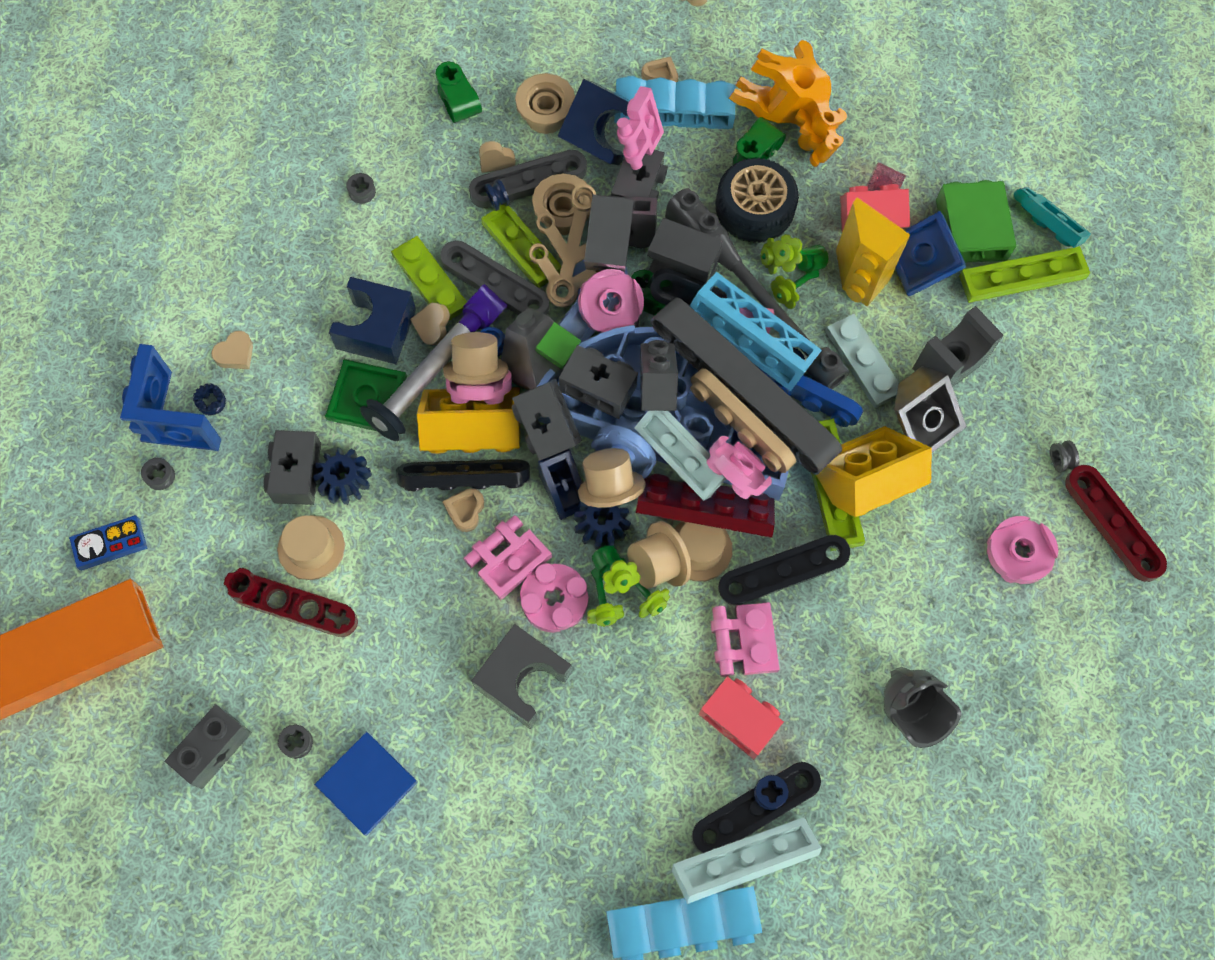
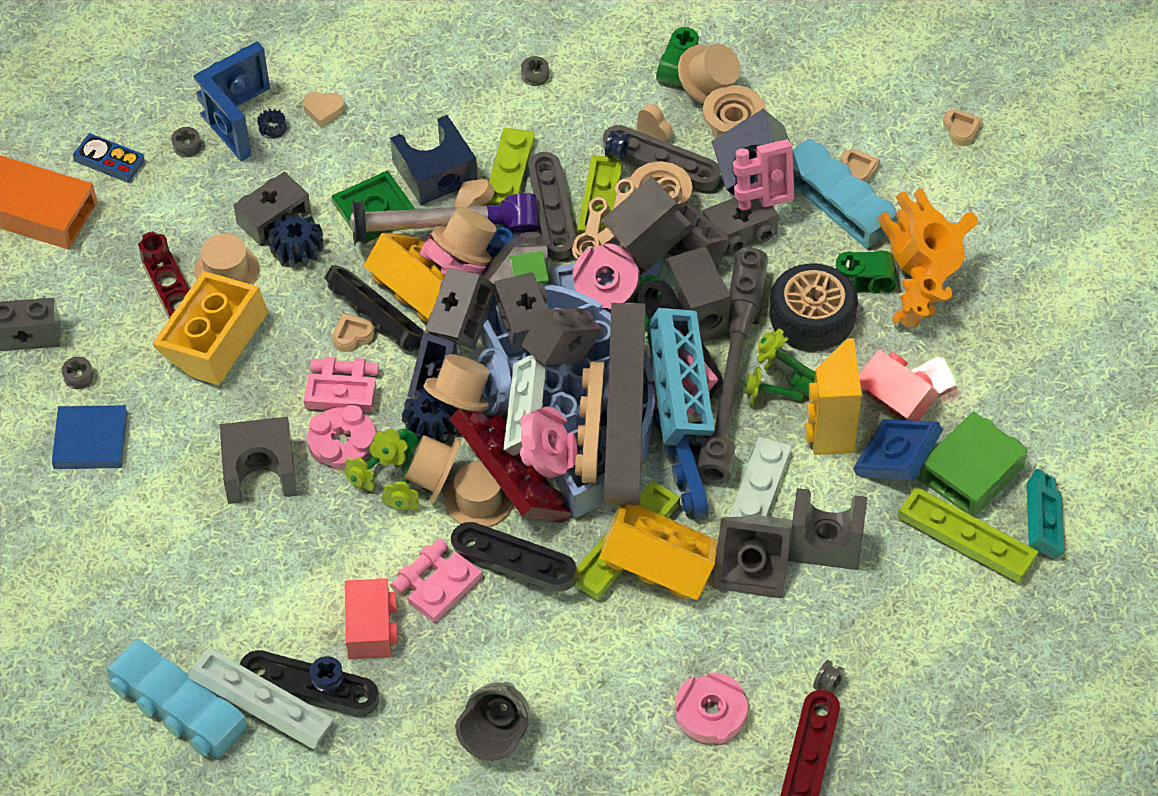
camera: 50 degrees right, 15 degrees down
(363, 606) = (212, 326): none -> yellow slope
(493, 84) = (707, 69): none -> tan piece

